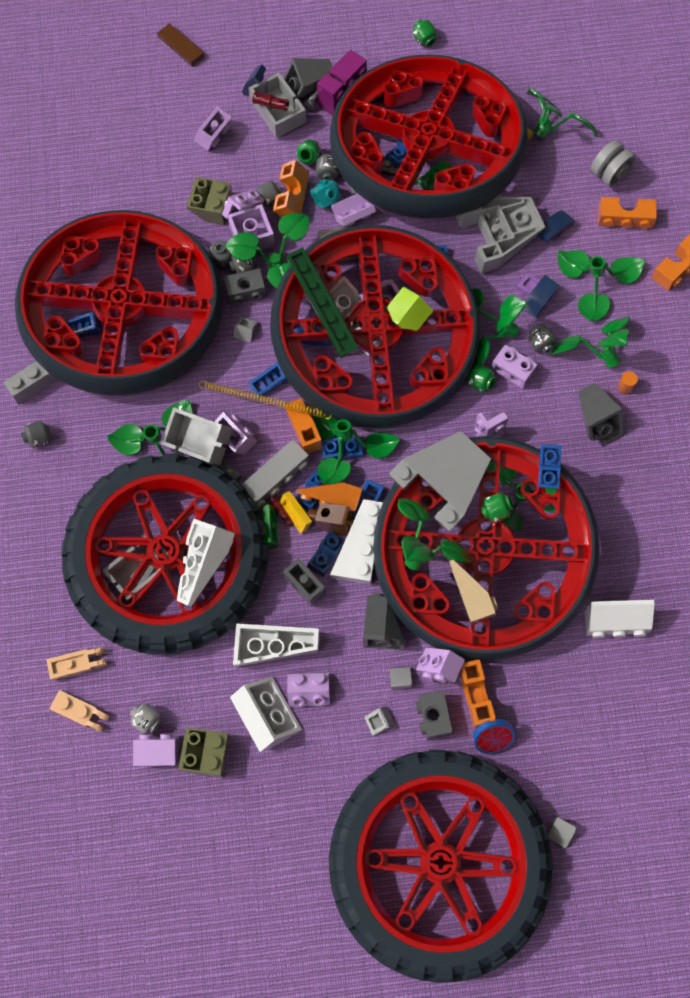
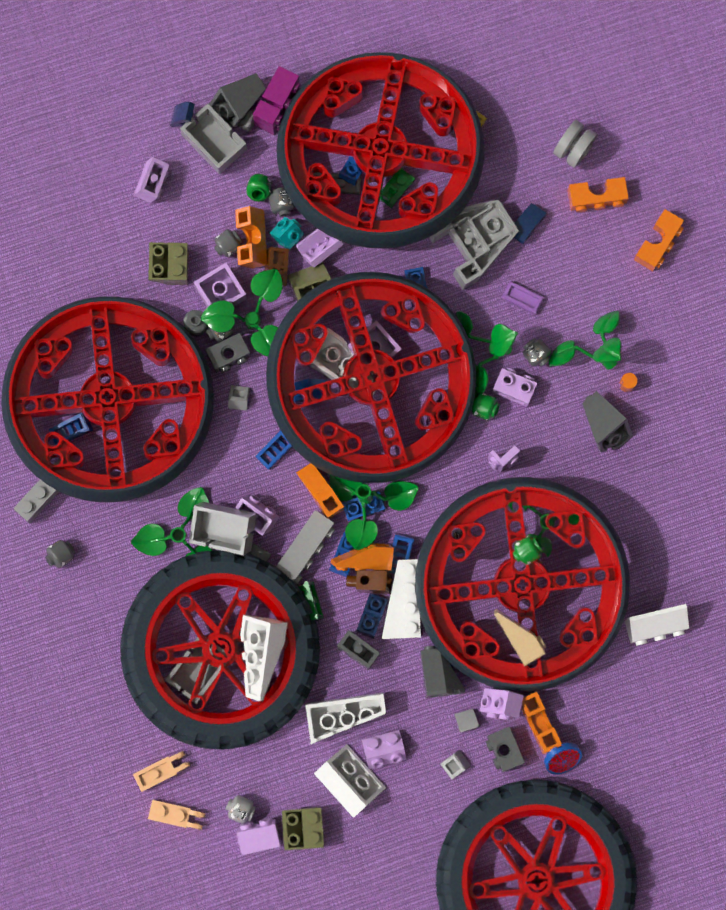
camera: 20 degrees left, 10 degrees up
(180, 44) = (89, 79): reddish brown tile -> none
(241, 202) = (206, 263): lavender bracket -> none
(261, 399) = (276, 473): yellow piece -> none
(270, 101) = (208, 143): dark red pin -> none
(279, 508) = (314, 578): dark red piece -> none
(295, 512) = (333, 581): yellow tile -> none
(314, 213) = (278, 259): none -> reddish brown hinge
(322, 302) = (317, 372): dark green plate -> none
(409, 310) = (402, 360): lime slope -> none
(416, 551) = (462, 611): green plant -> none
(424, 32) = (349, 18): green head -> none
(451, 469) = (477, 522): light grey wedge -> none
(540, 296) = (527, 306): dark blue slope -> none
(545, 125) = (499, 104): green plant -> none
(549, 465) = (569, 501): blue slope -> none
(561, 832) = (638, 830): light grey slope -> none
(574, 262) = (554, 260): green plant -> none

